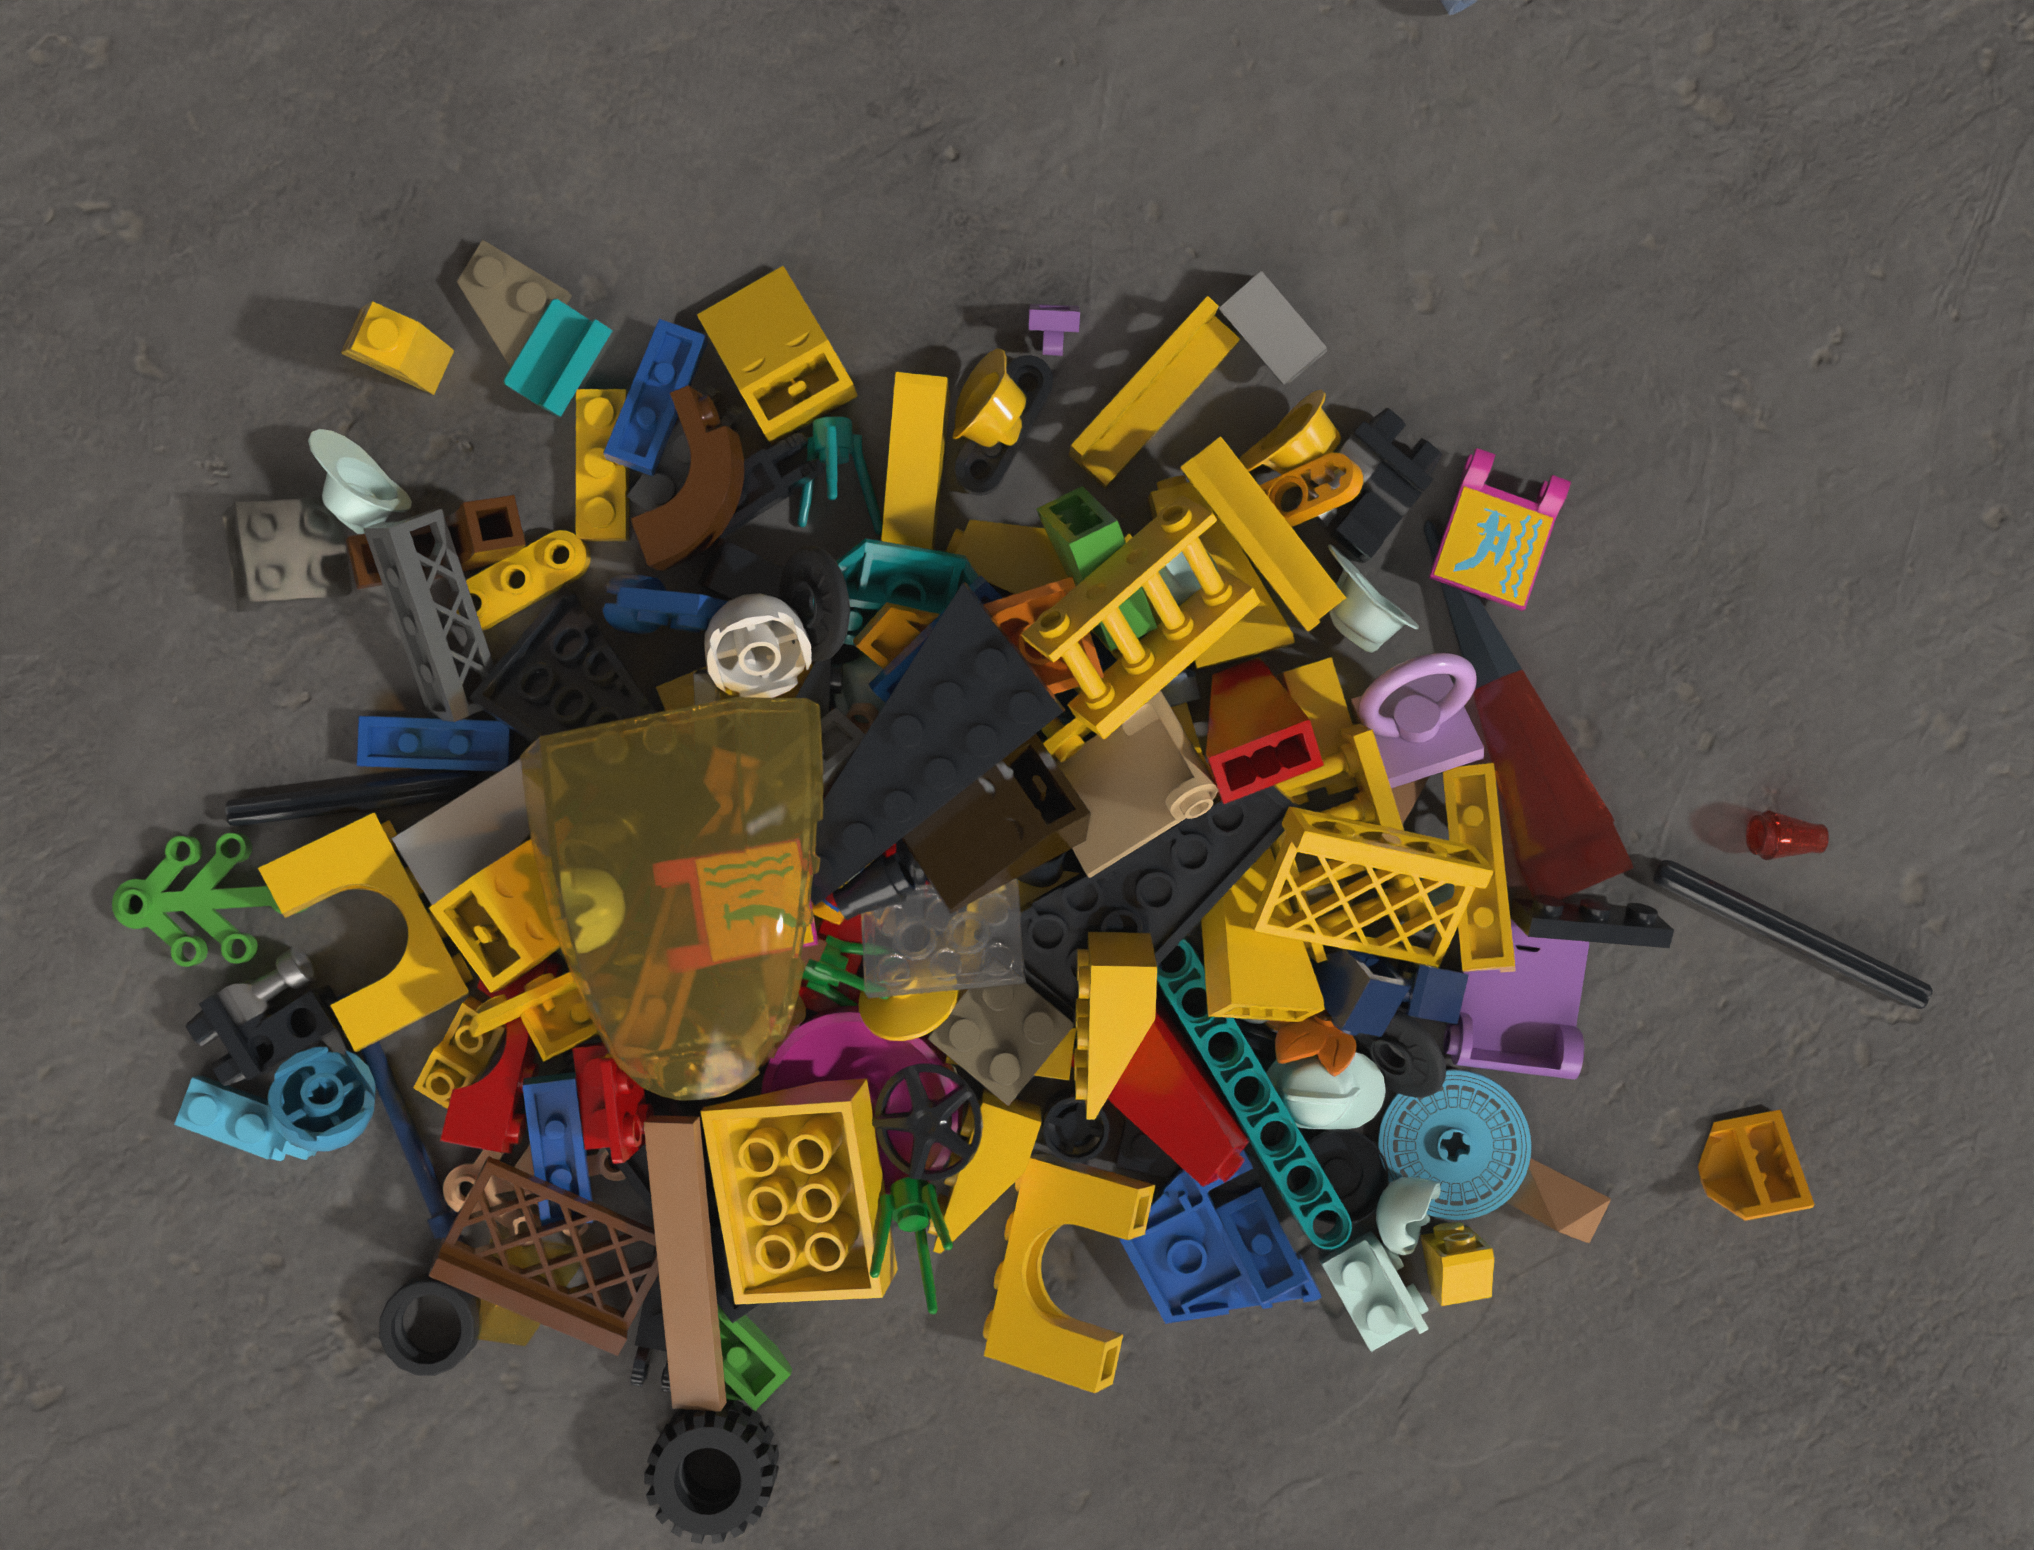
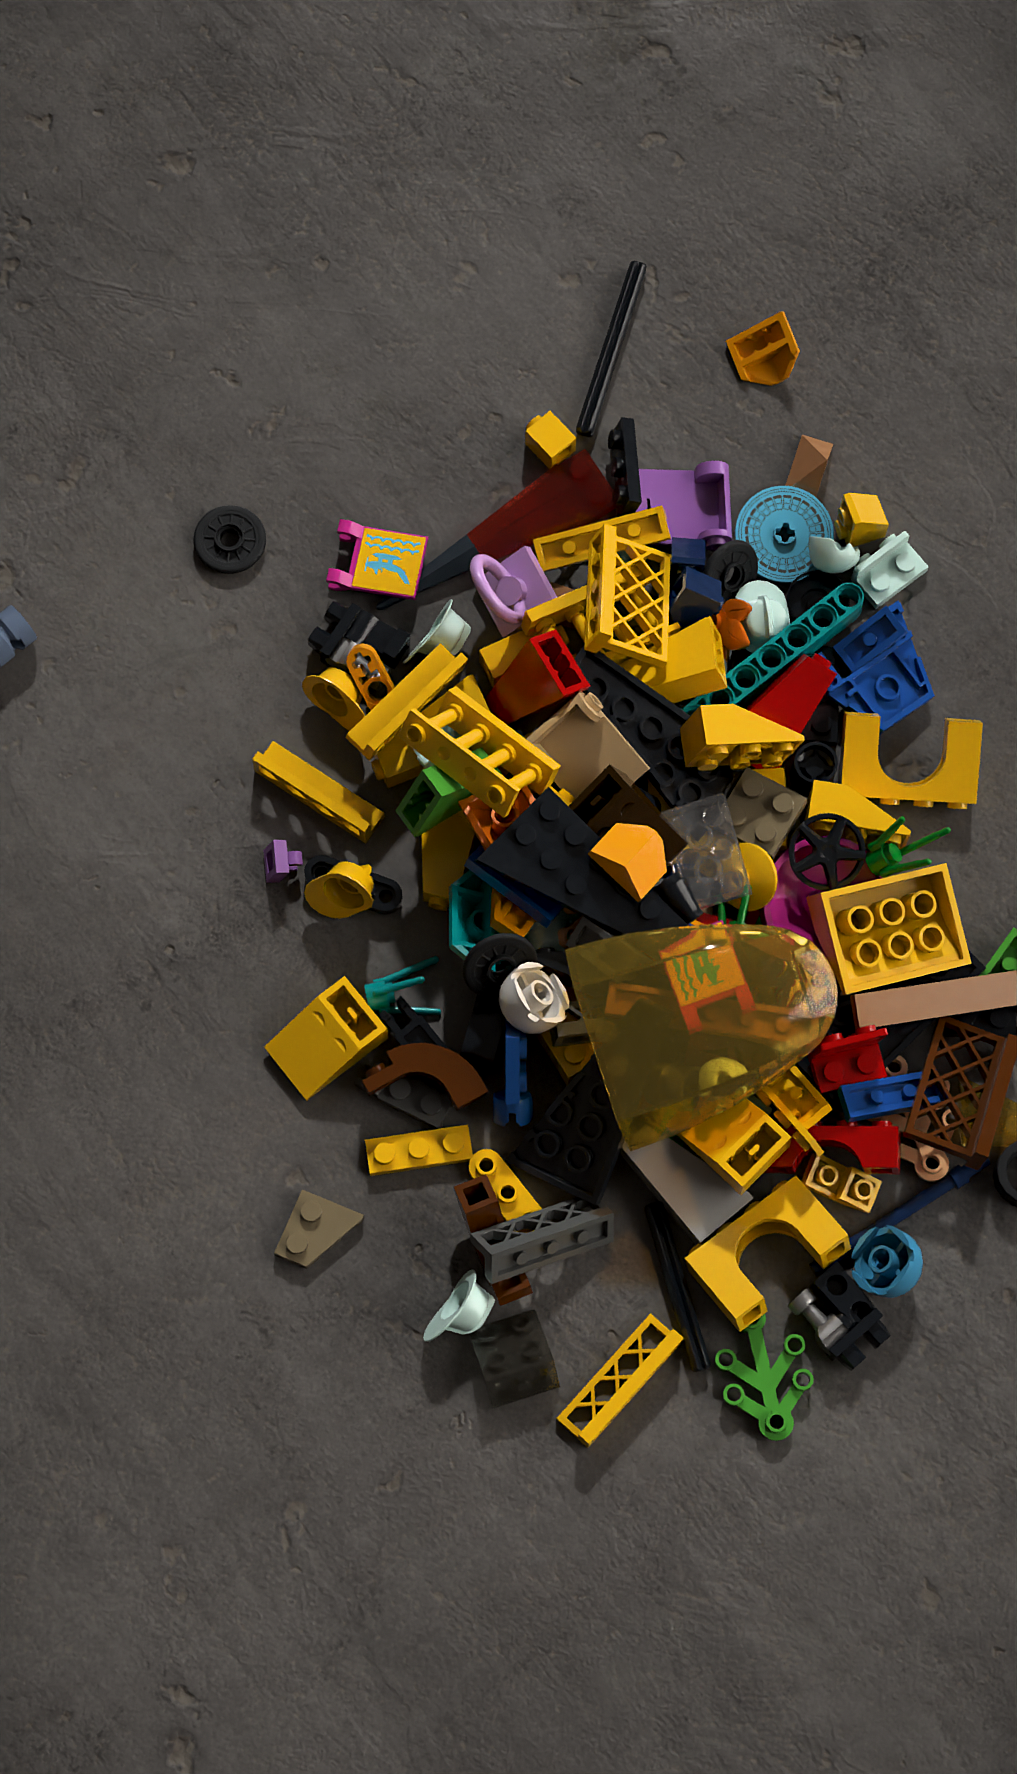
camera: 100 degrees left, 15 degrees down
(212, 706) = (629, 1388): none -> yellow fence
(234, 1119) = (914, 1327): medium azure hinge -> none
(398, 347) = (358, 1298): yellow slope -> none
(434, 744) = (630, 1232): blue plate -> none
(556, 357) = (351, 1185): teal panel -> none
(649, 408) = (368, 1115): blue plate -> none
(915, 459) = (391, 933): yellow slope -> none
(936, 822) = (631, 857): none -> light orange slope
(1273, 328) = (263, 719): light grey hinge -> none
(1584, 293) = (235, 558): none -> black wheel
(1656, 816) = (549, 439): none -> yellow brick
(1782, 836) = (549, 361): clear red cone -> none

